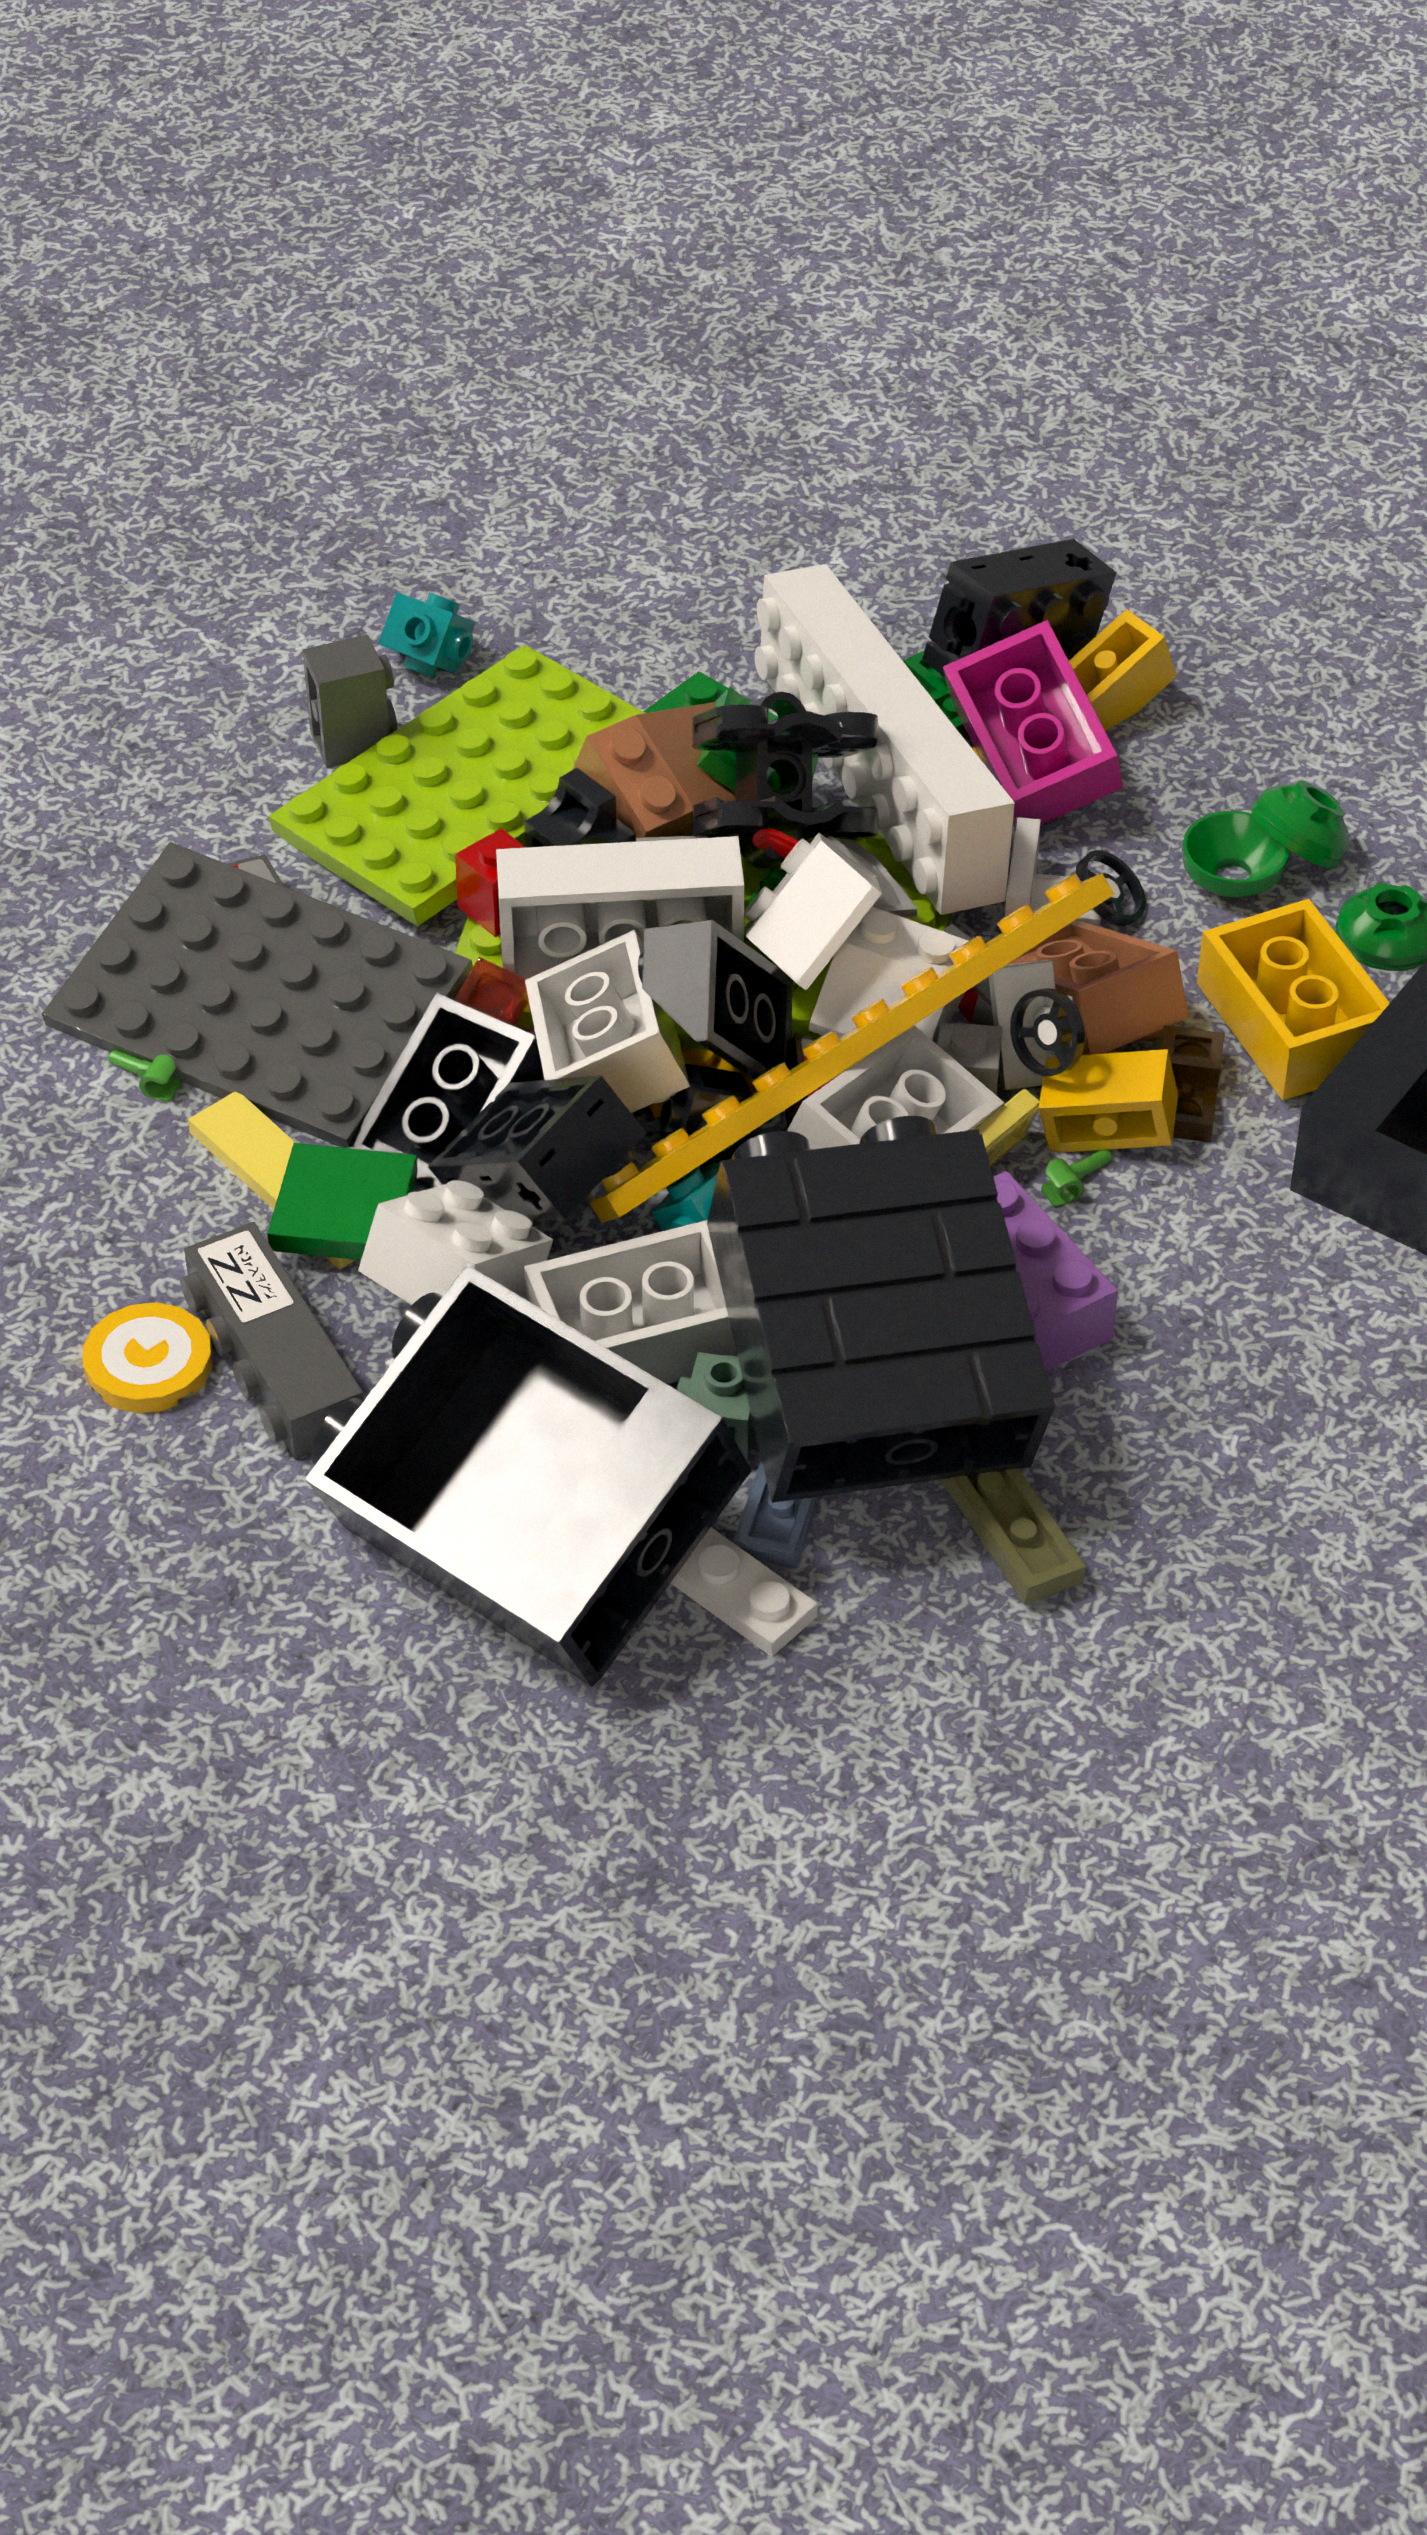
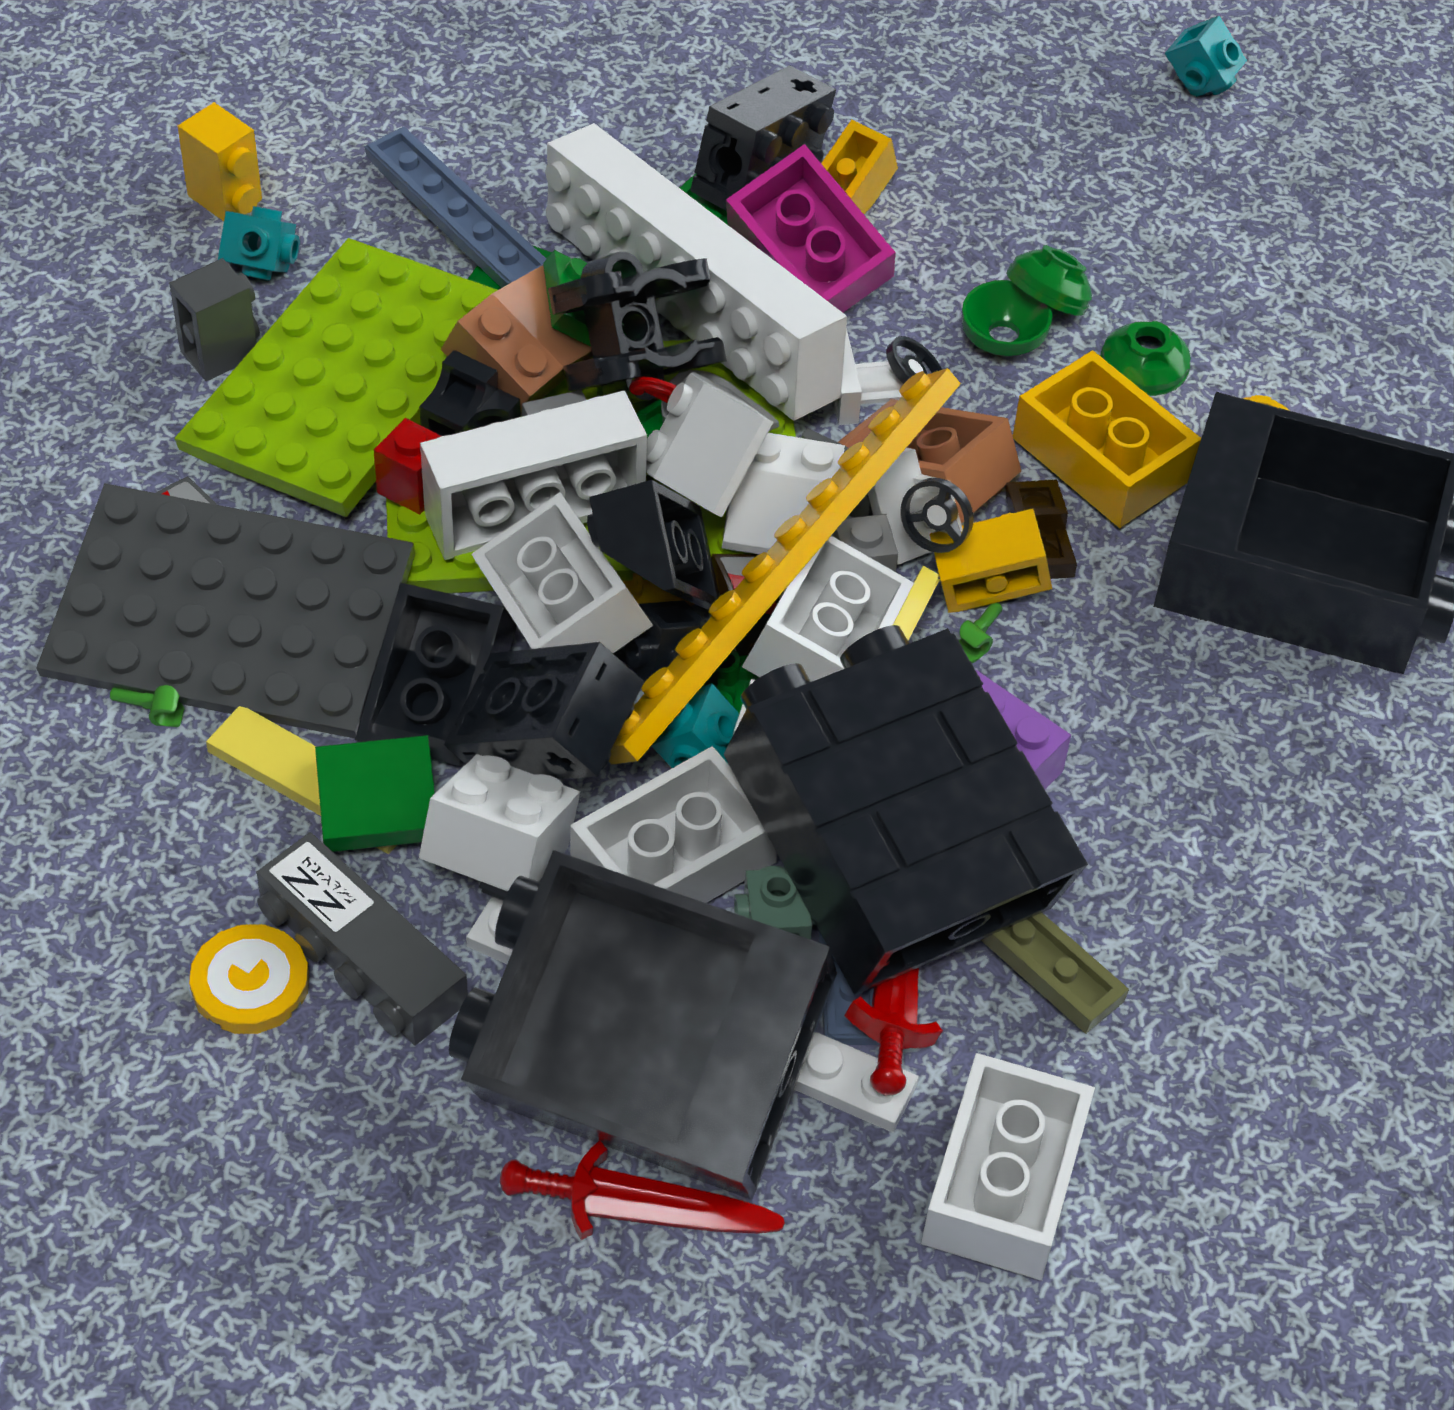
camera: 20 degrees left, 5 degrees up
(414, 541) = (220, 161): none -> yellow brick
(462, 1654) = (636, 1198): none -> red sword
(494, 992) = (443, 569): clear red plate -> none
(652, 628) = (454, 207): none -> sand blue tile
(805, 1544) = (894, 1026): none -> red sword
(872, 1707) = (1007, 1166): none -> white brick

